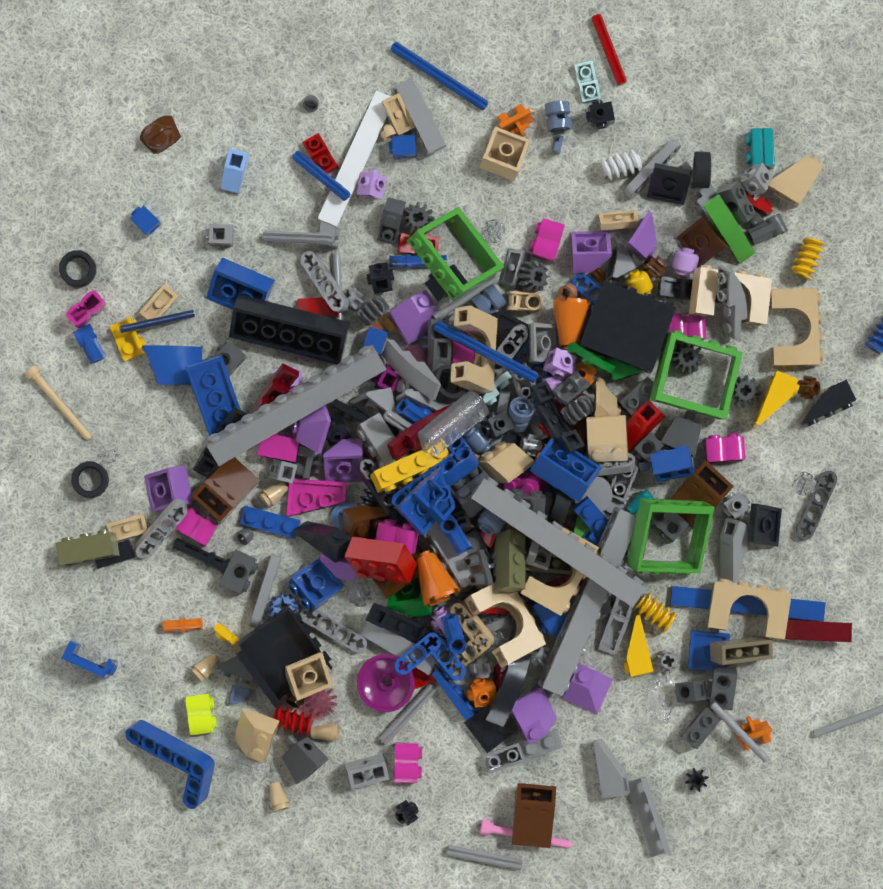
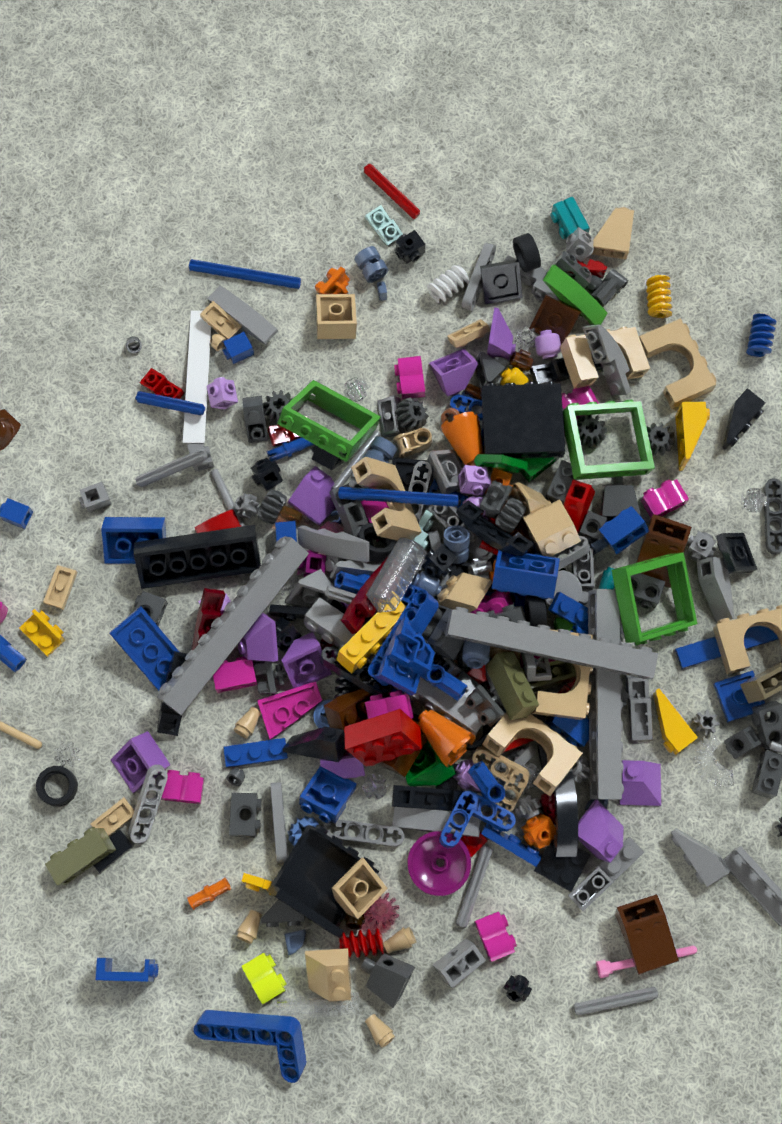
camera: 20 degrees left, 10 degrees down
(156, 321) = (63, 603): dark blue bar -> none
(170, 361) = (92, 637): blue slope -> none
(210, 559) = (208, 814): black pin -> none
(226, 489) = (197, 738): reddish brown slope -> none
(234, 171) = (84, 432): light blue slope -> none
(277, 470) = (241, 696): light grey brick -> none
(322, 283) = (212, 501): light grey beam -> none
(656, 612) = (673, 679): yellow piece -> none
(808, 387) = (717, 410): reddish brown gear -> none

